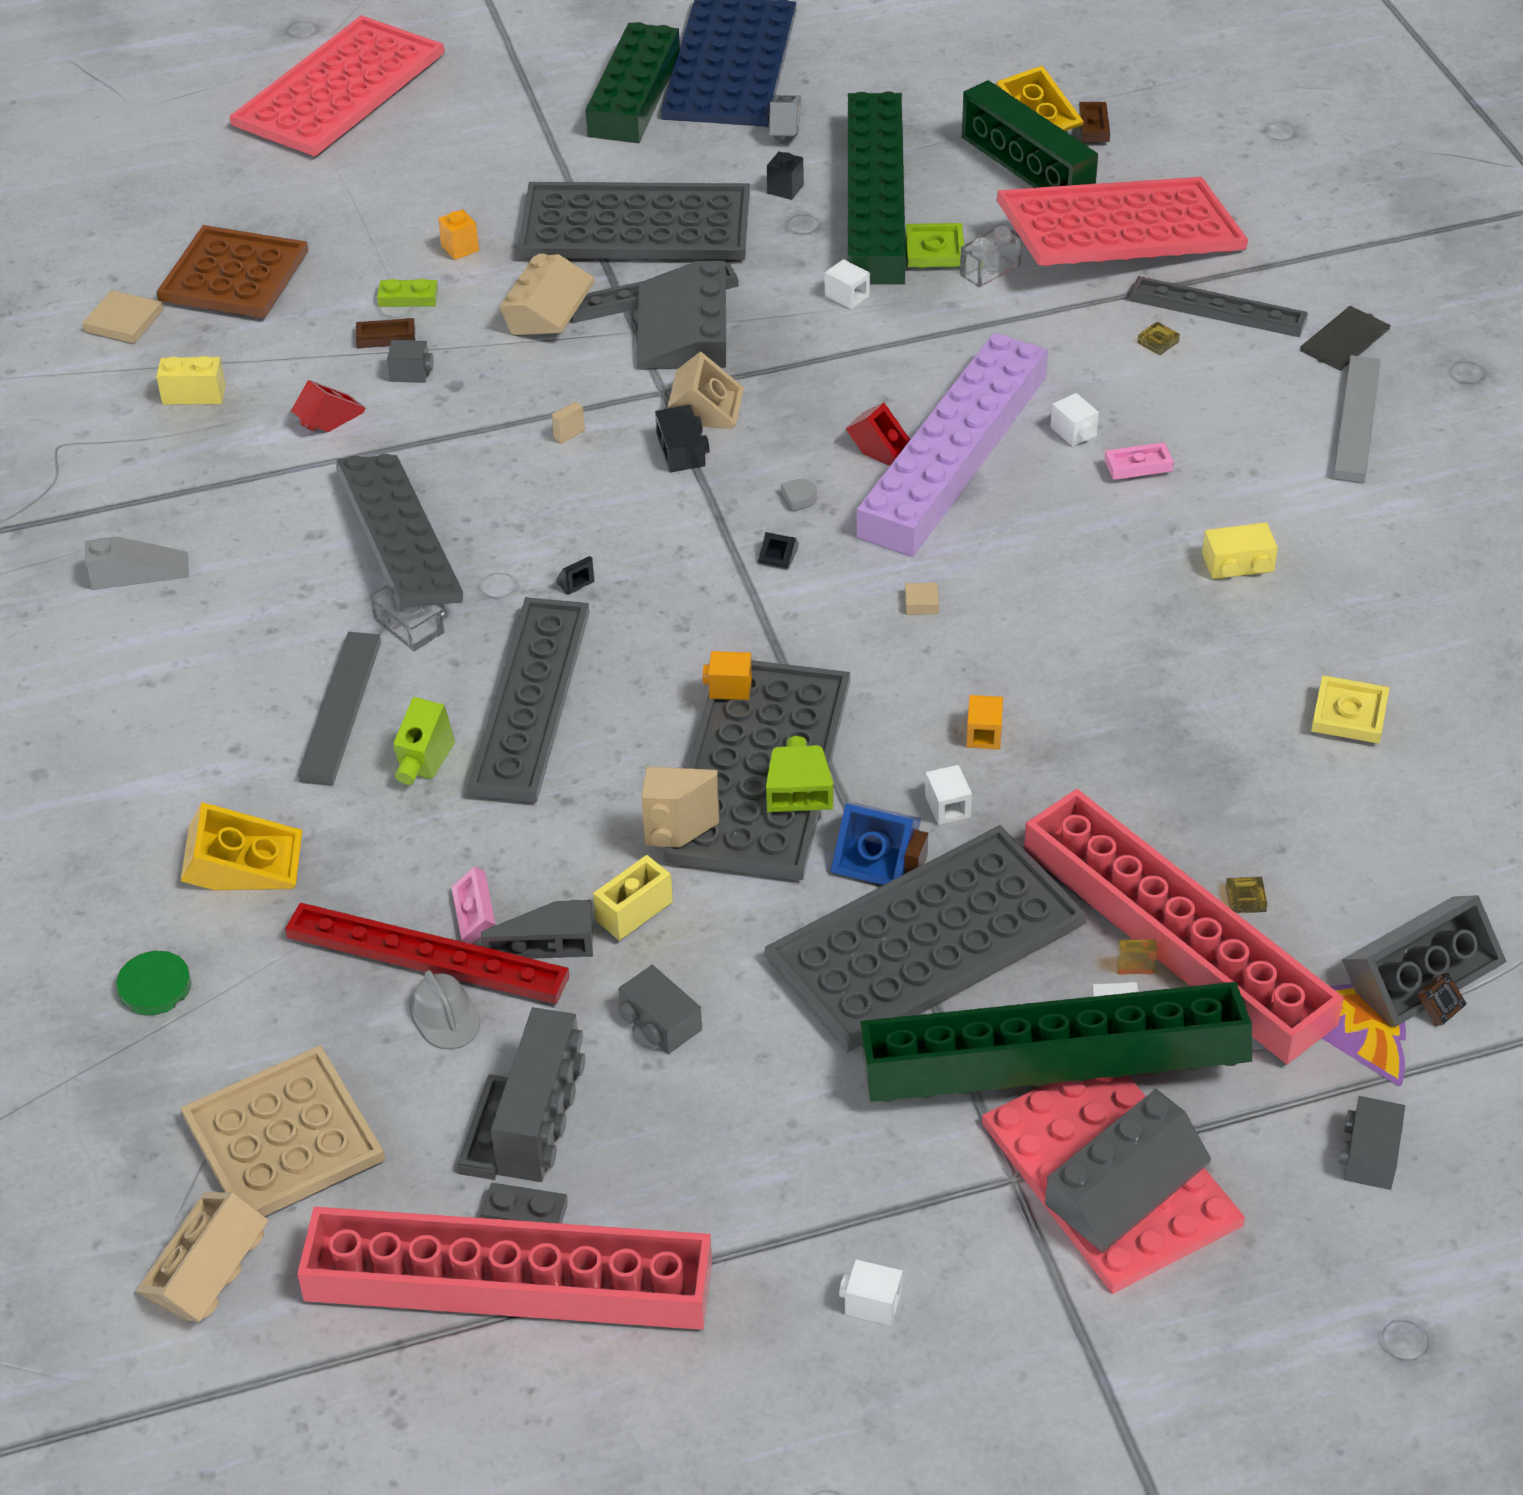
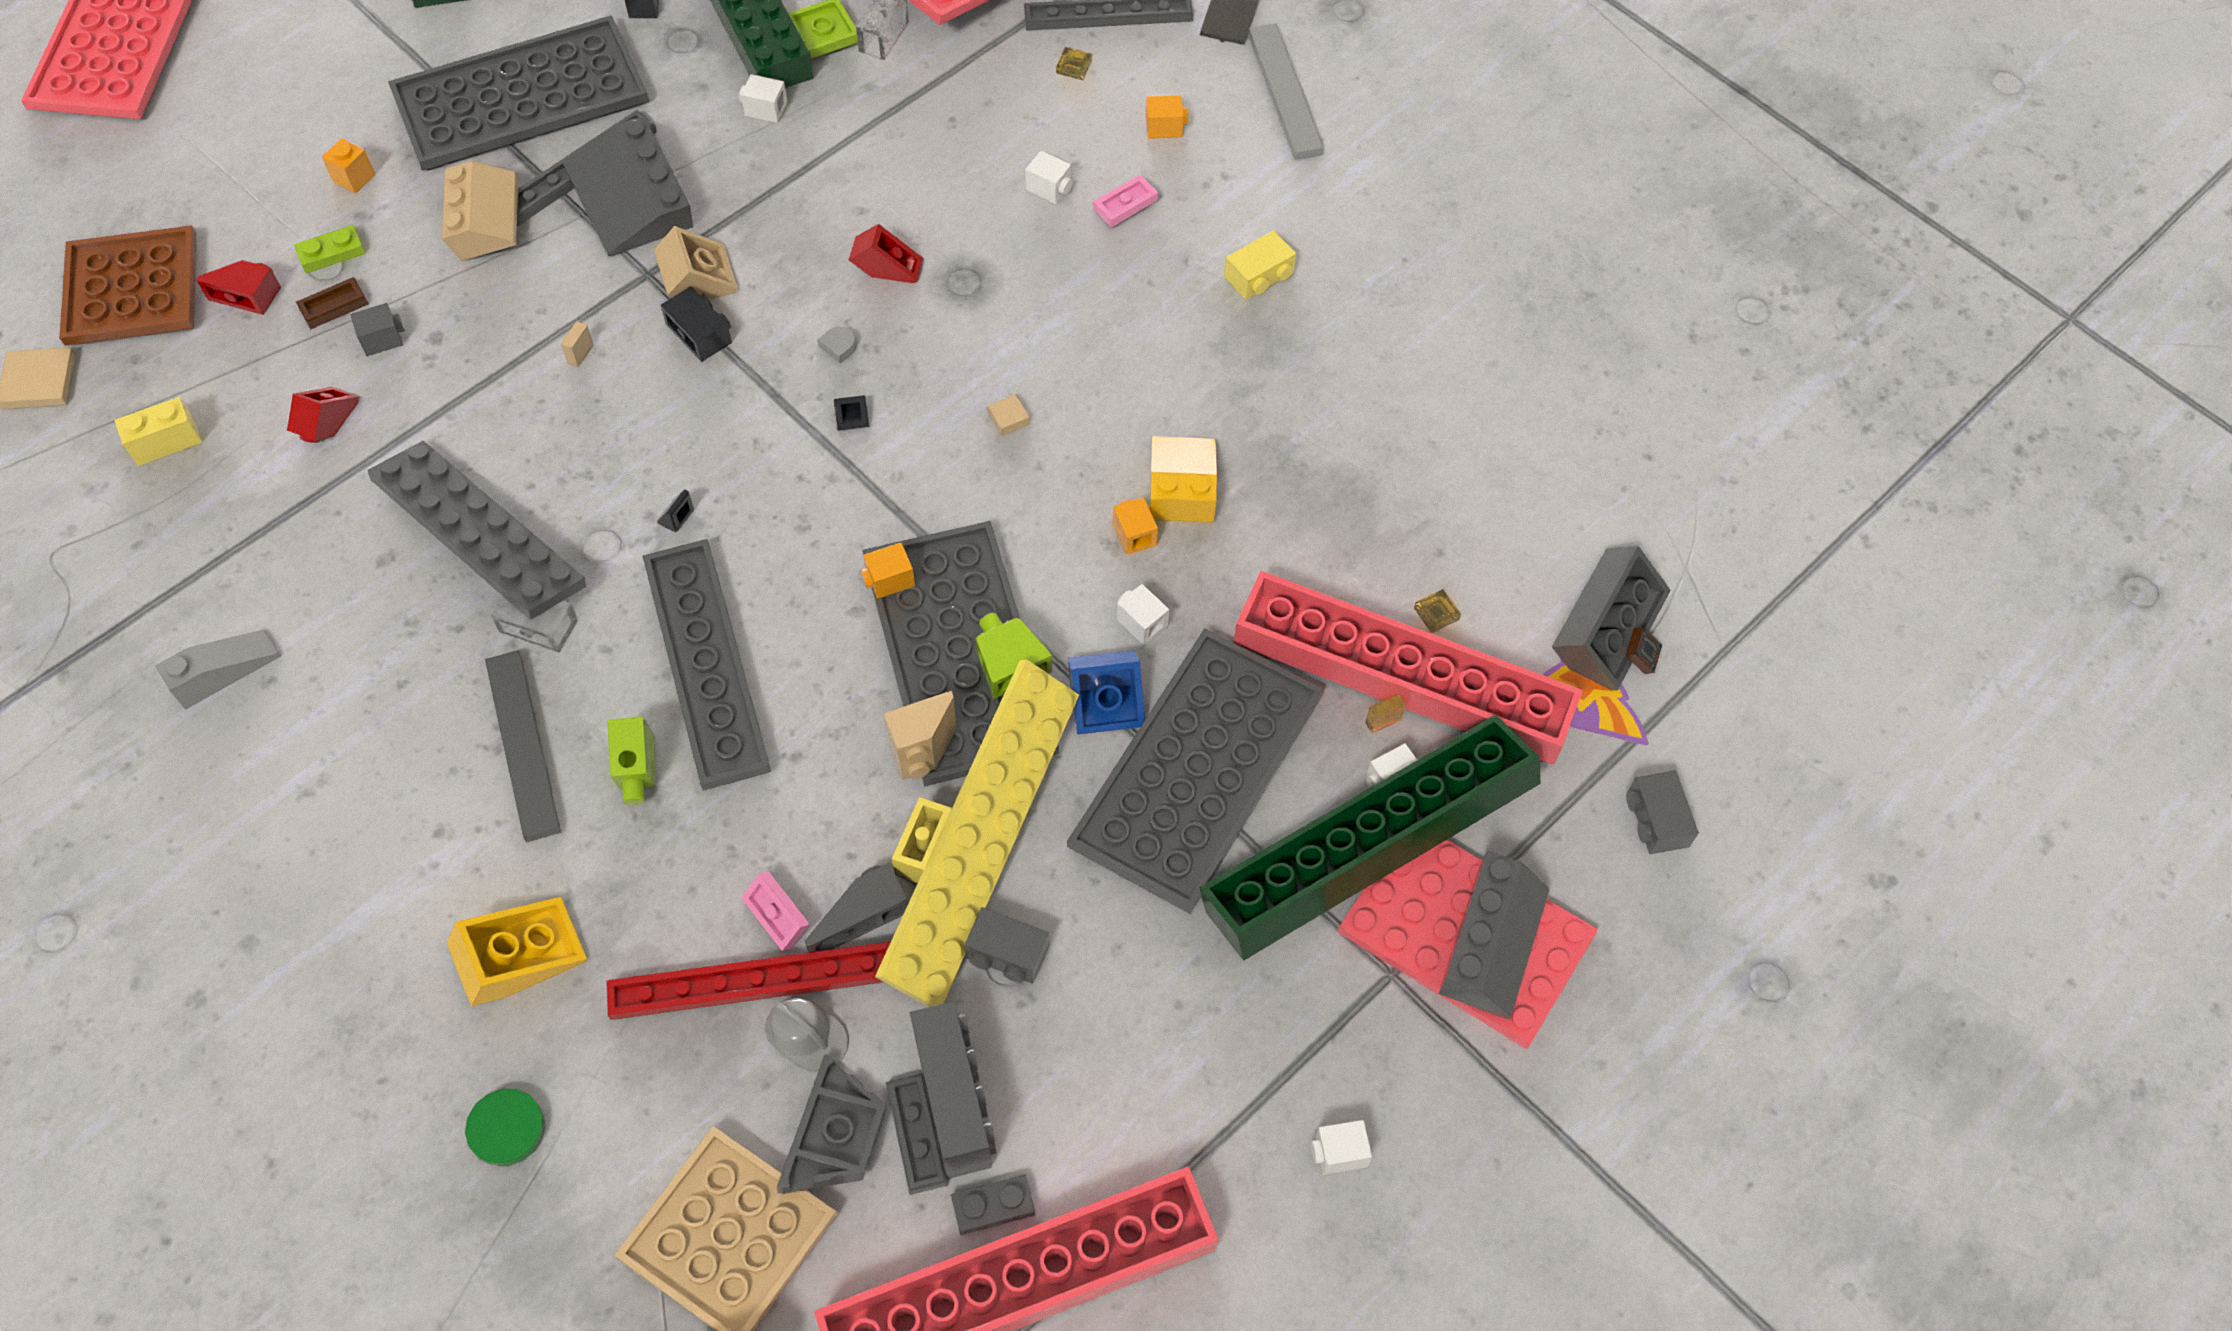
camera: 30 degrees left, 15 degrees up
(319, 297) = (241, 286): none -> red slope
(417, 1092) = (834, 1133): none -> dark grey wing
(687, 902) = (978, 835): none -> light yellow plate
(916, 851) = (1148, 687): reddish brown tile -> none
(951, 444) = (953, 243): lavender brick -> none
(1054, 702) = (1183, 479): none -> yellow slope
(1219, 403) = (1165, 116): none -> light orange brick
(1350, 709) = (1430, 392): light yellow plate -> none

